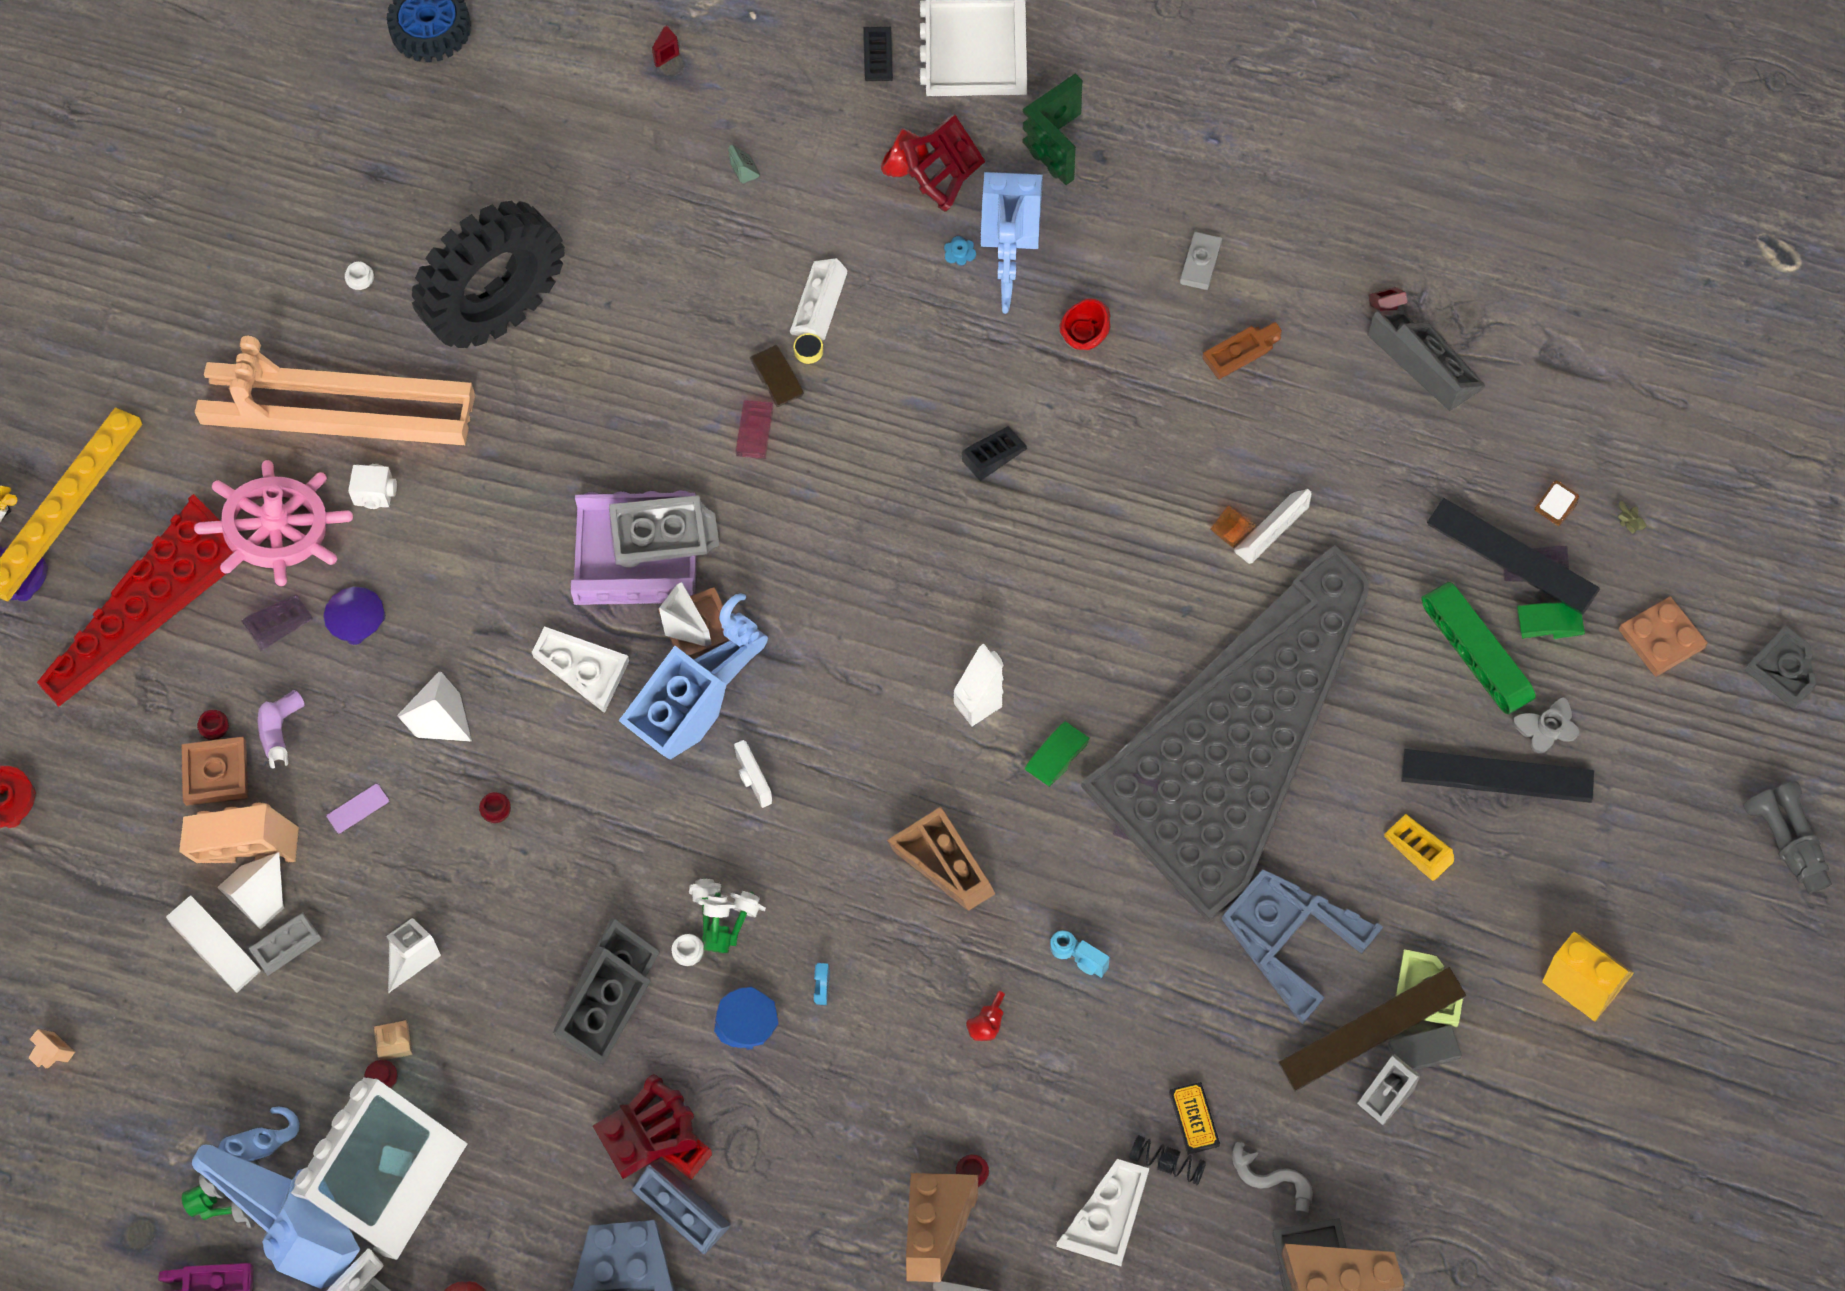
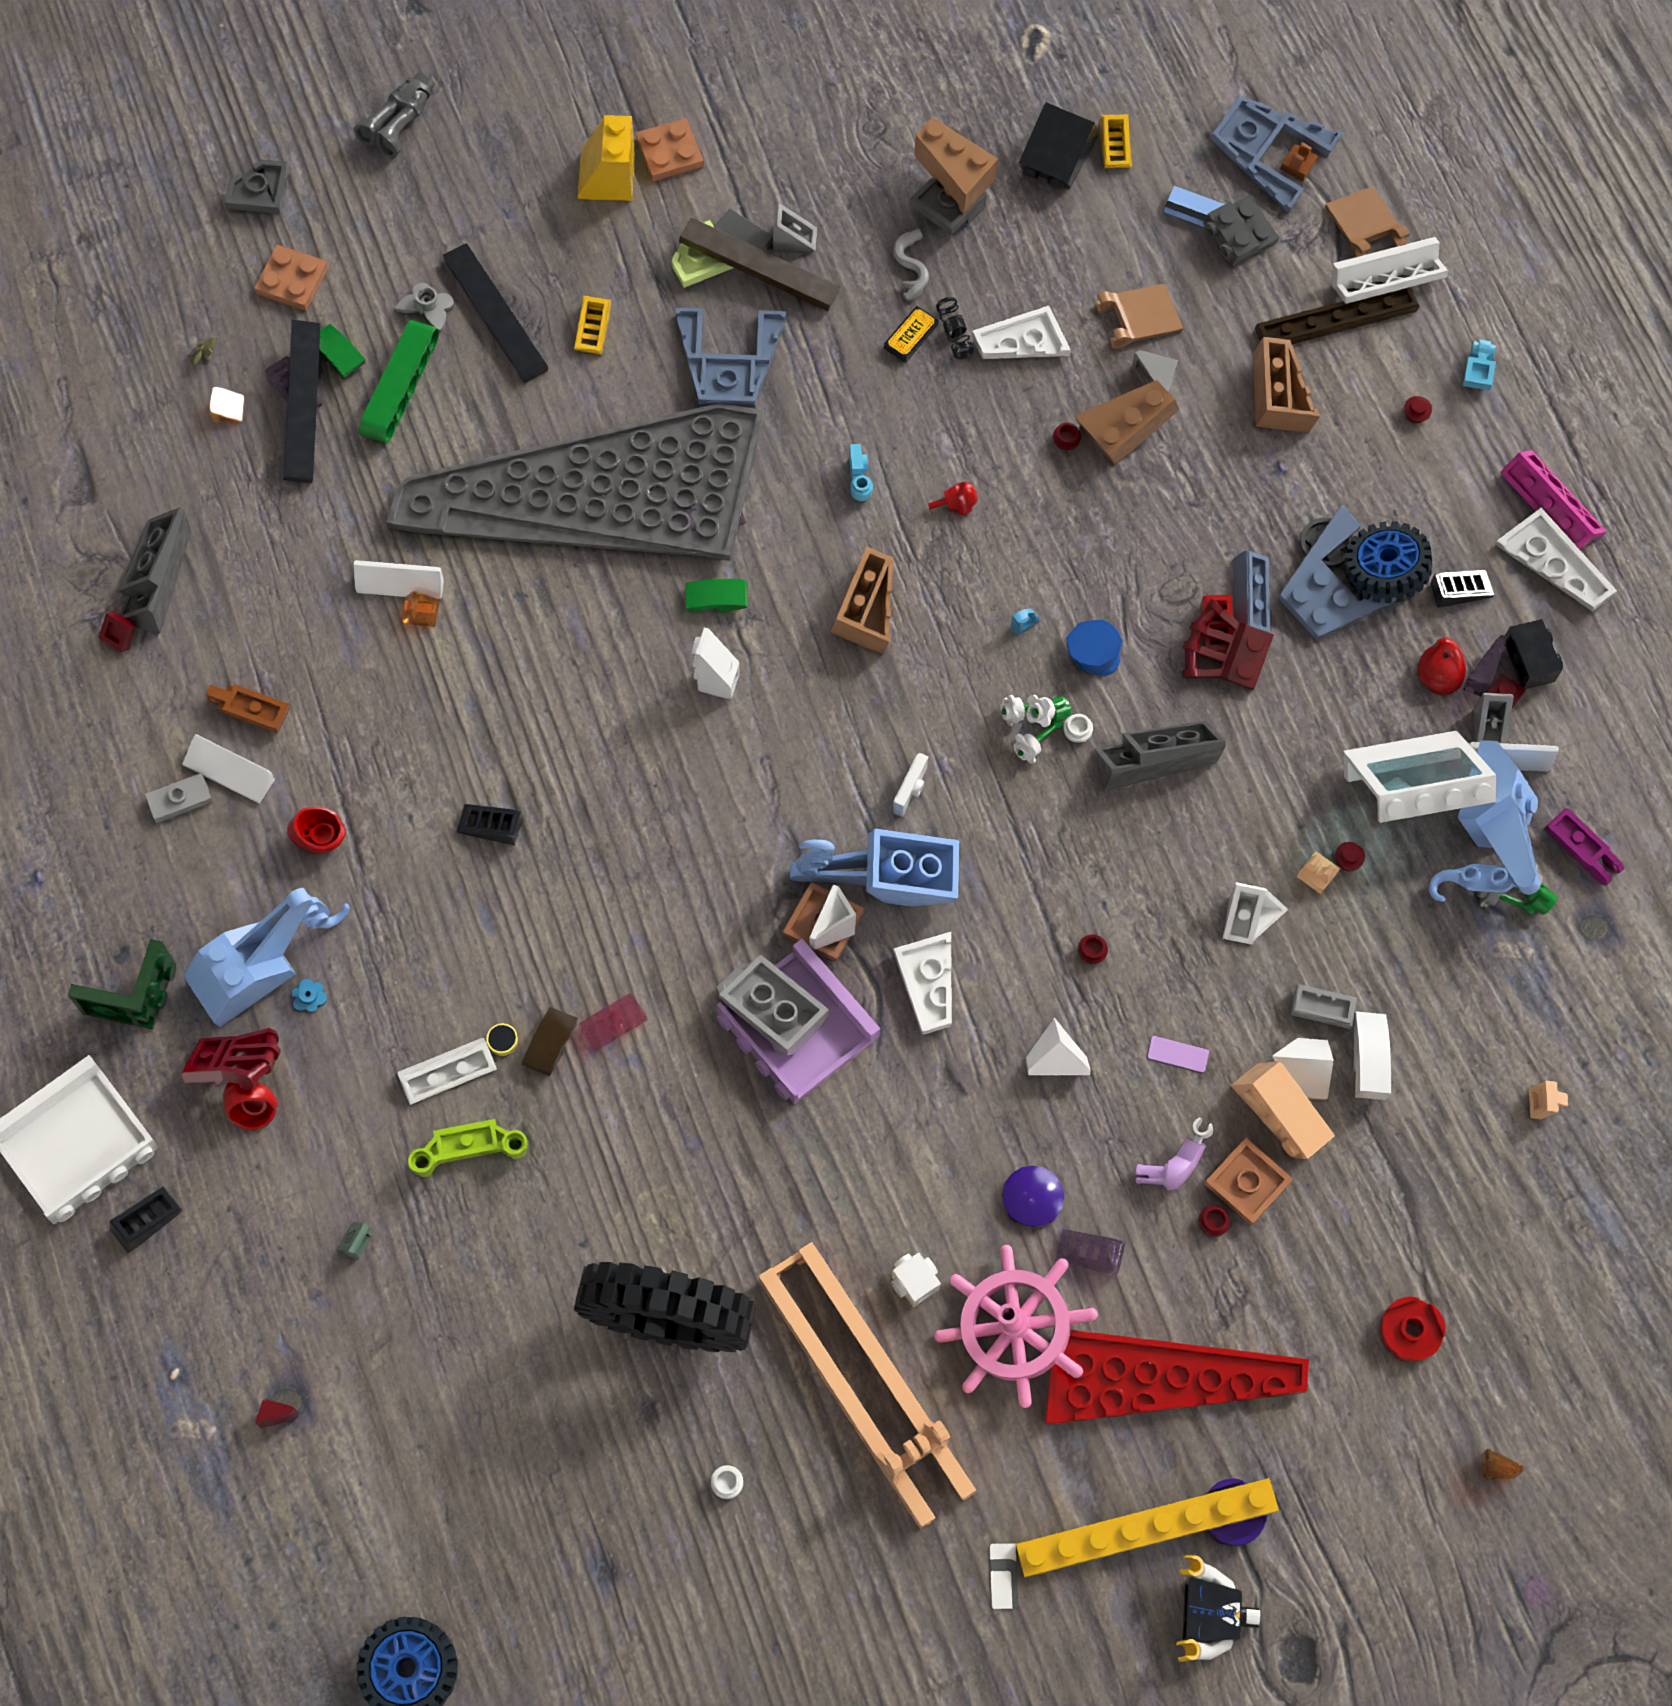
camera: 135 degrees left, 5 degrees up
(131, 401) = (1003, 1576): none -> white sticker
(748, 274) = (466, 1142): none -> lime plate
(1198, 307) = (228, 769): none -> white slope
(1576, 1054) = (669, 149): none -> nougat plate

